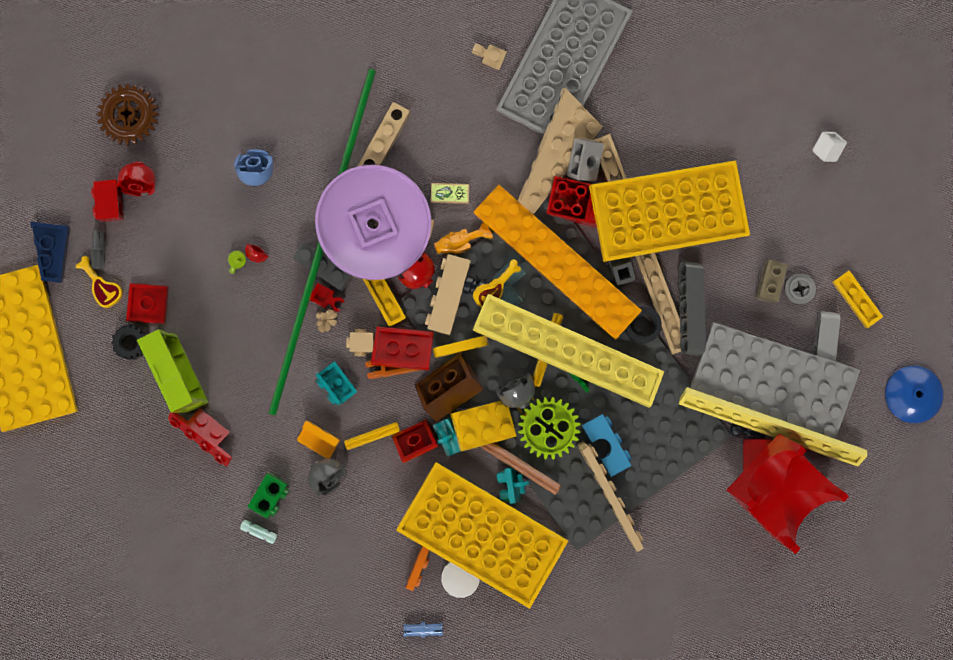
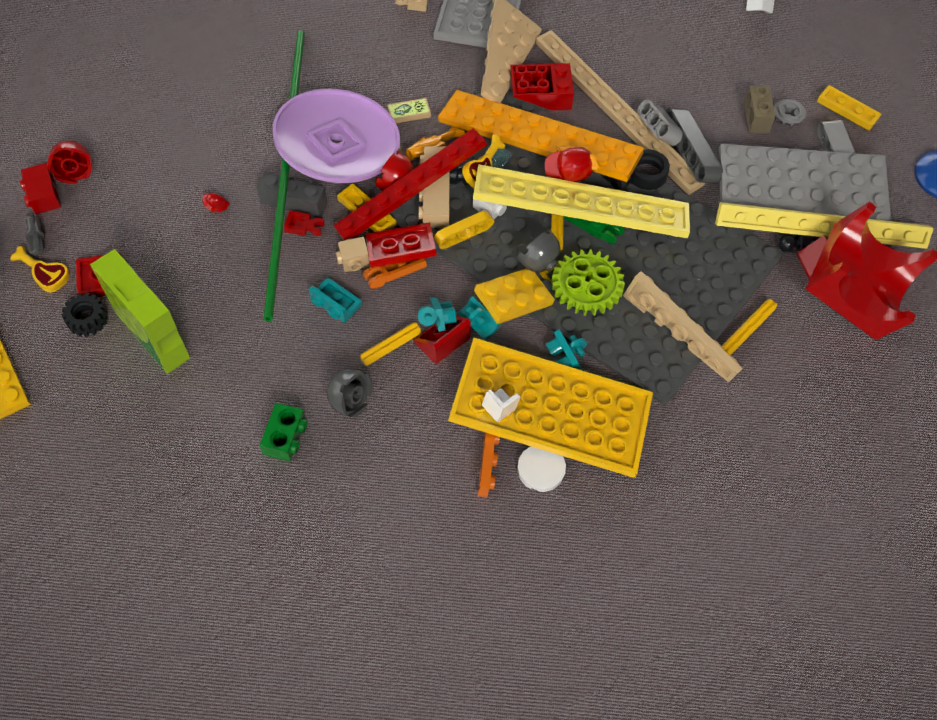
camera: 20 degrees left, 25 degrees down
(127, 96) = (52, 119): reddish brown gear -> none
(205, 432) = (189, 386): red bracket -> none
(236, 260) = (194, 211): lime piece -> none
(254, 167) = (198, 126): medium blue cylinder -> none
(258, 531) = (280, 478): light aqua axle -> none
(318, 439) = (328, 358): light orange panel -> none
(325, 320) = (308, 242): tan plant -> none
(385, 136) = (332, 68): tan piece -> none
(418, 419) = (440, 314): none -> teal hips
(423, 629) = (515, 538): medium blue pin -> none
(425, 294) = (410, 185): none -> red plate
(438, 531) = (500, 404): none -> white panel
(448, 387) = (463, 270): reddish brown slope -> none
(522, 467) = (569, 328): nougat axle -> none
(570, 312) = (571, 164): none -> red hair
(585, 159) = (535, 45): light grey brick -> none
(616, 459) = (663, 278): dark azure arch -> none
(621, 271) = (601, 123): dark grey brick -> none
(667, 502) = (749, 326): none -> yellow axle
(669, 210) = (633, 69): yellow plate -> none
(671, 277) = (659, 122): none -> light grey beam

